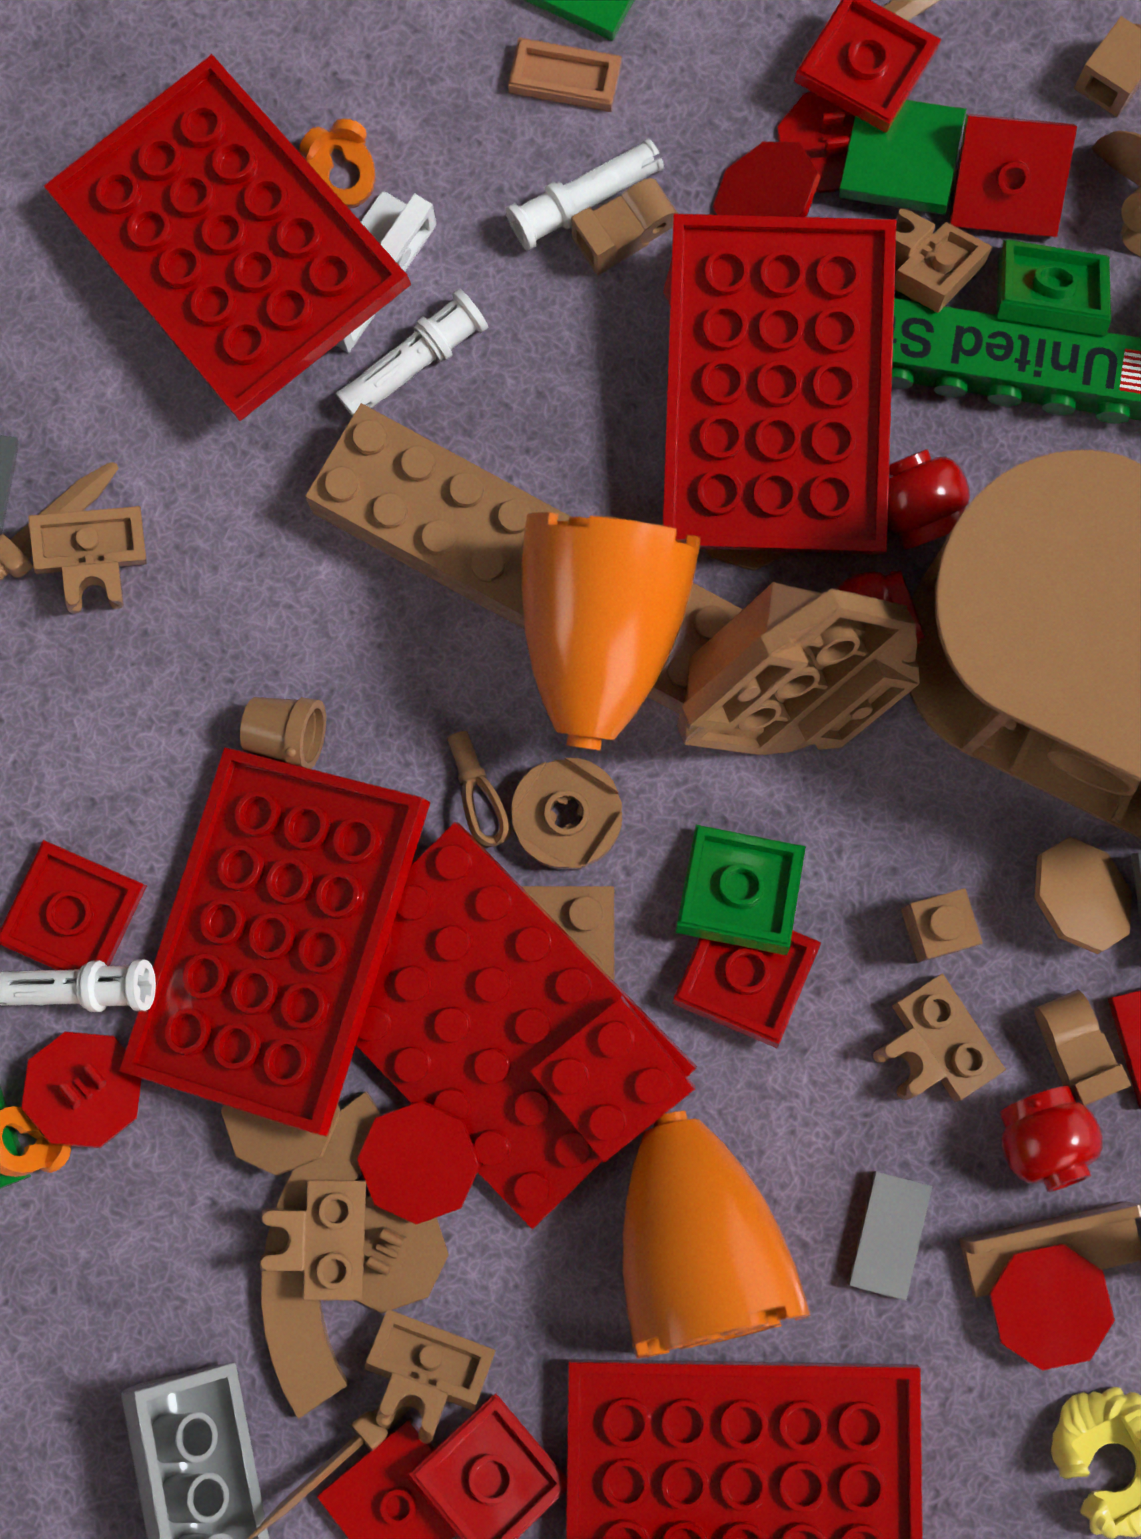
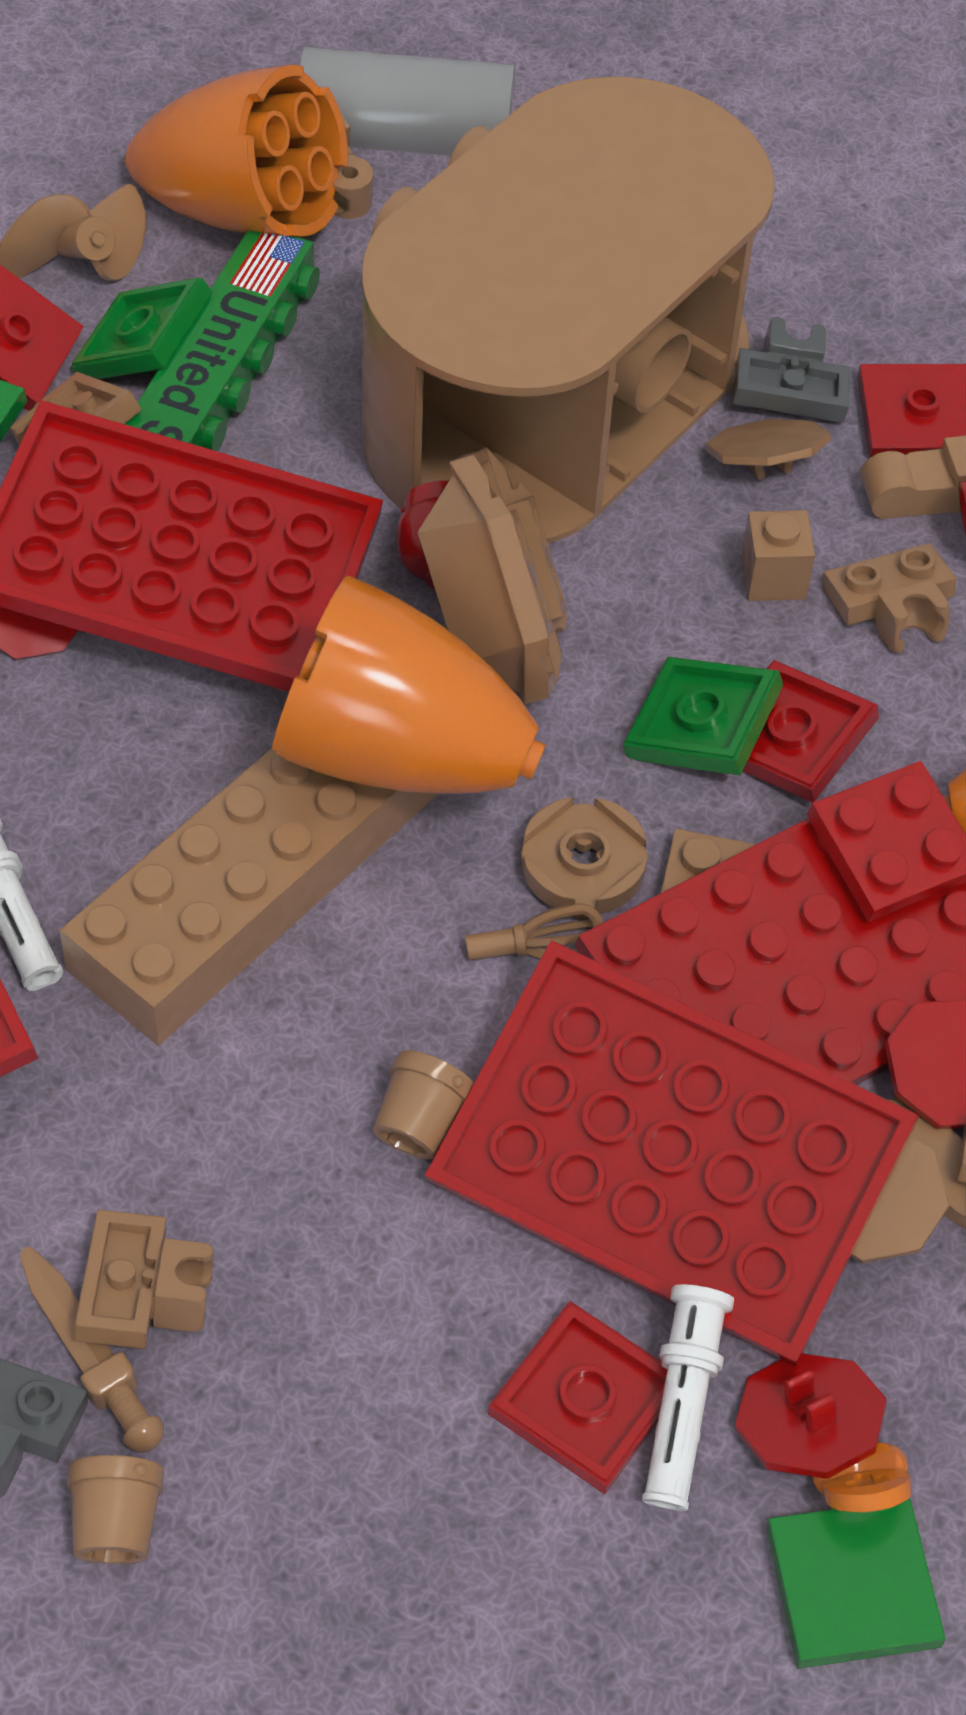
camera: 85 degrees left, 25 degrees down
(925, 498) = (336, 457): red piece -> none

